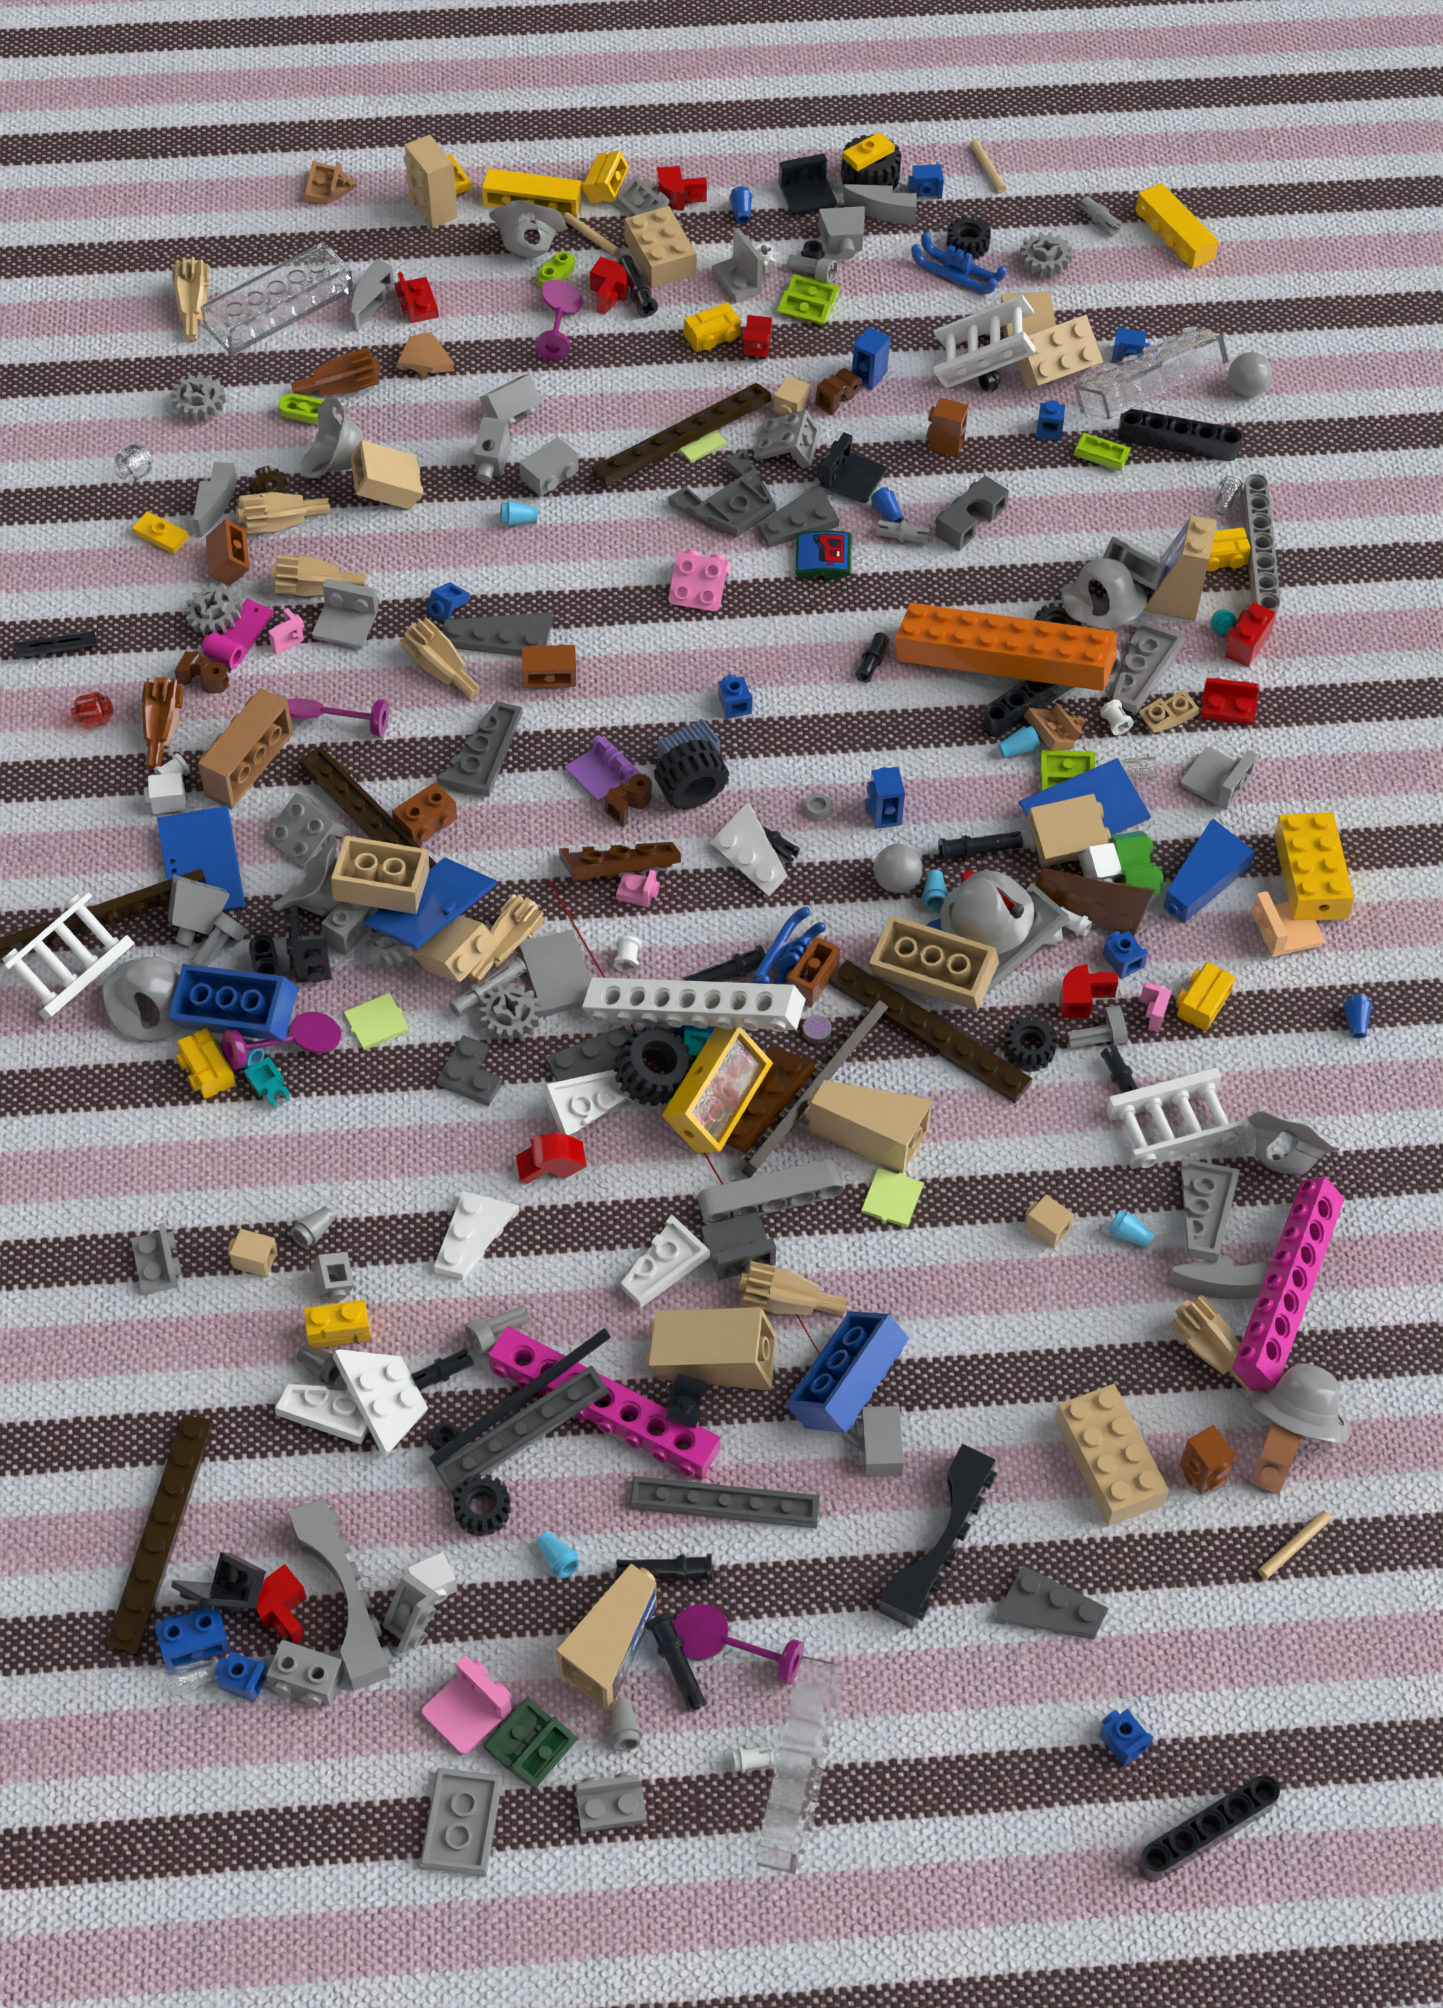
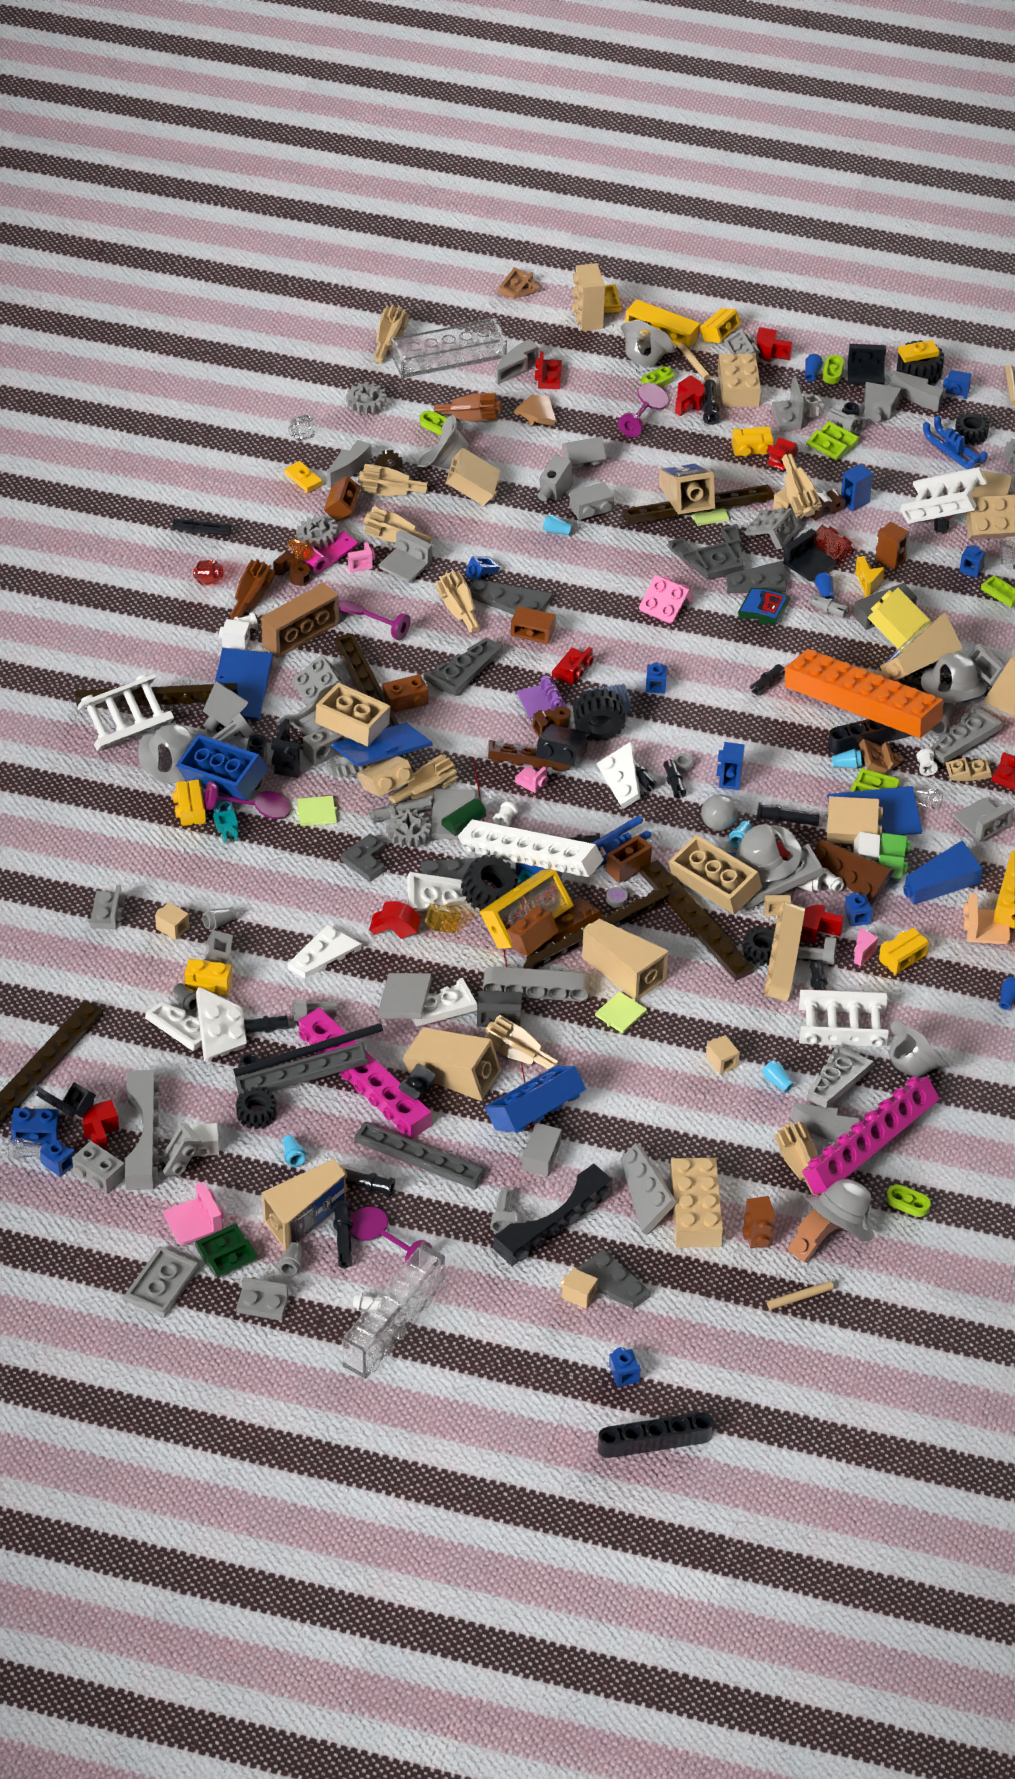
camera: 20 degrees right, 10 degrees down
(206, 644) = (301, 549): none -> clear orange cone
(578, 974) = (460, 818): none -> dark green brick
(610, 1134) = (442, 918): none -> clear yellow panel
(610, 1268) = (404, 996): none -> light grey tile
(620, 708) = (573, 665): none -> red bracket
(661, 831) = (562, 745): none -> black brick
(665, 415) = (688, 488): none -> tan slope
(742, 1122) = (532, 930): none -> dark orange brick
(767, 200) = (833, 369): none -> lime plate
(807, 381) = (800, 489): none -> tan piece
(818, 834) = (674, 779): none -> black pin
(870, 443) = (832, 544): none -> clear red bracket
(875, 1567) = (503, 1216): none -> light grey piece
(931, 478) = (869, 578): none -> yellow slope
(1000, 527) = (897, 617): none -> light yellow brick
(1017, 1636) = (579, 1288): none -> tan brick
(1028, 978) = (773, 902): none -> tan bracket
(1044, 1458) = (648, 1190): none -> light grey wing
(1049, 563) = (922, 648): none -> tan slope
(1067, 1048) = (784, 951): none -> tan beam
(1366, 1358) = (909, 1200): none -> lime plate

